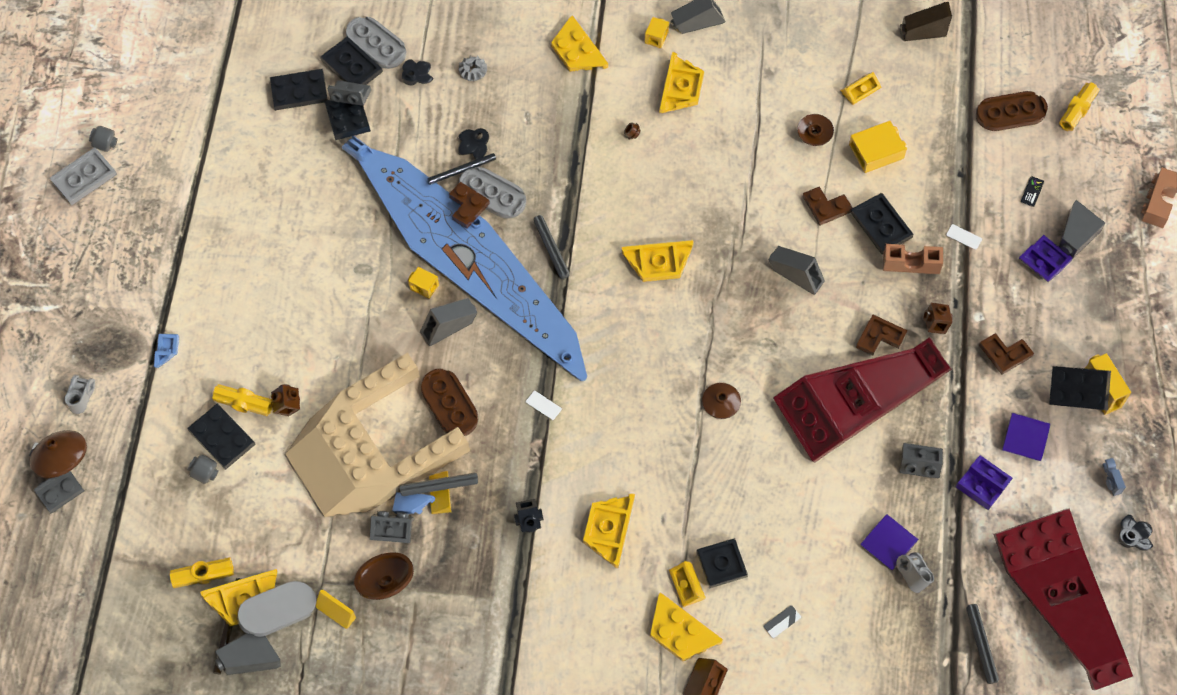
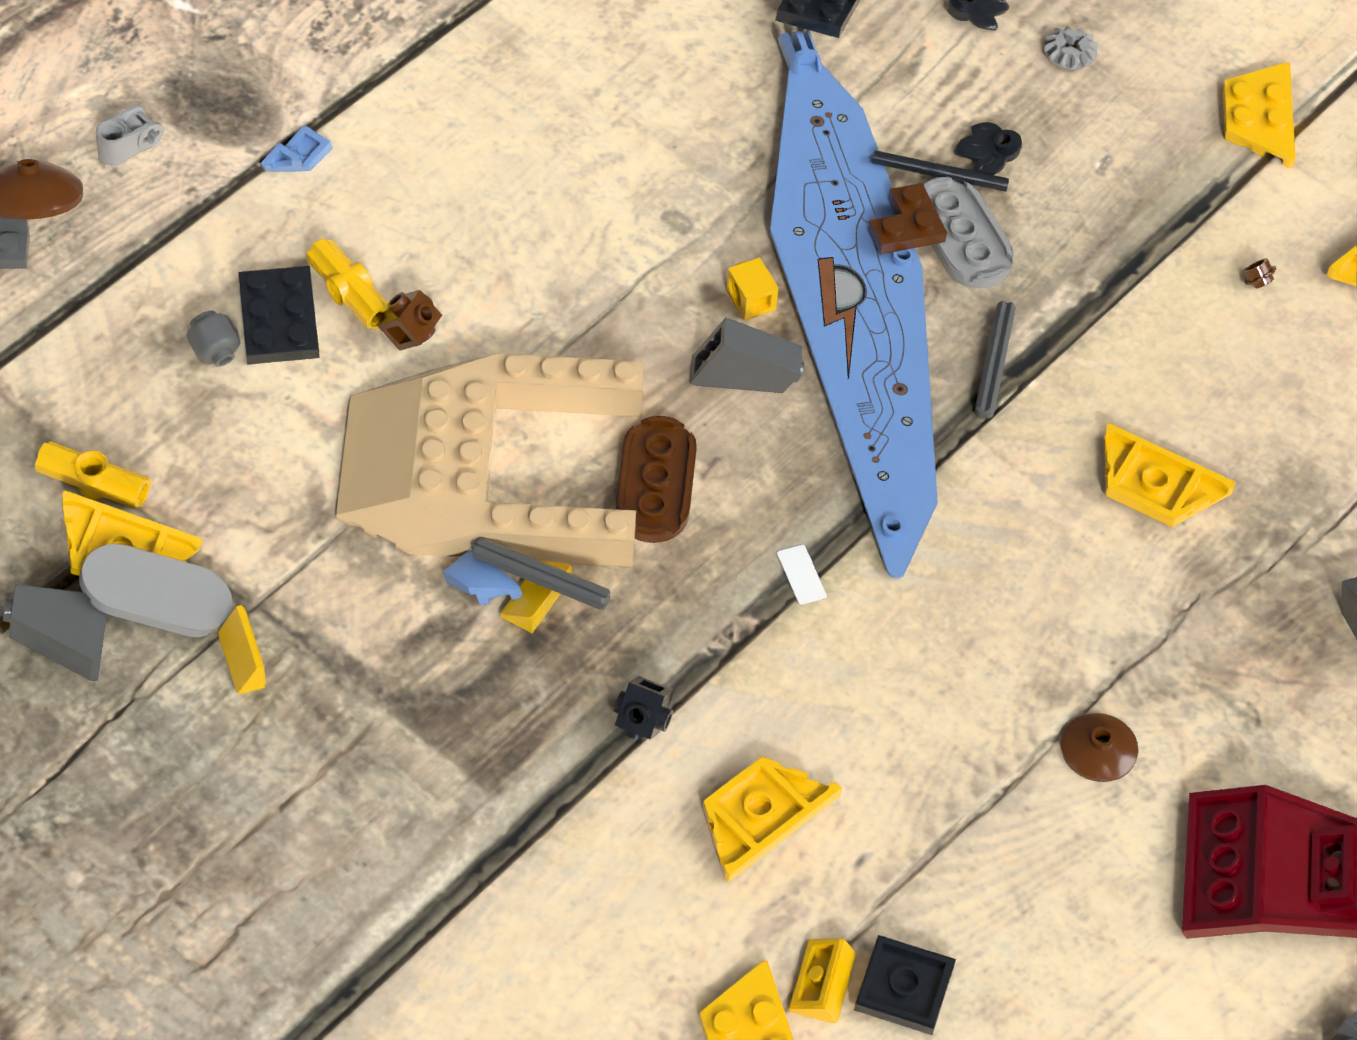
camera: 30 degrees right, 10 degrees down
(384, 576) = (350, 649): reddish brown dish -> none
(391, 527) = (419, 593): dark grey bracket -> none

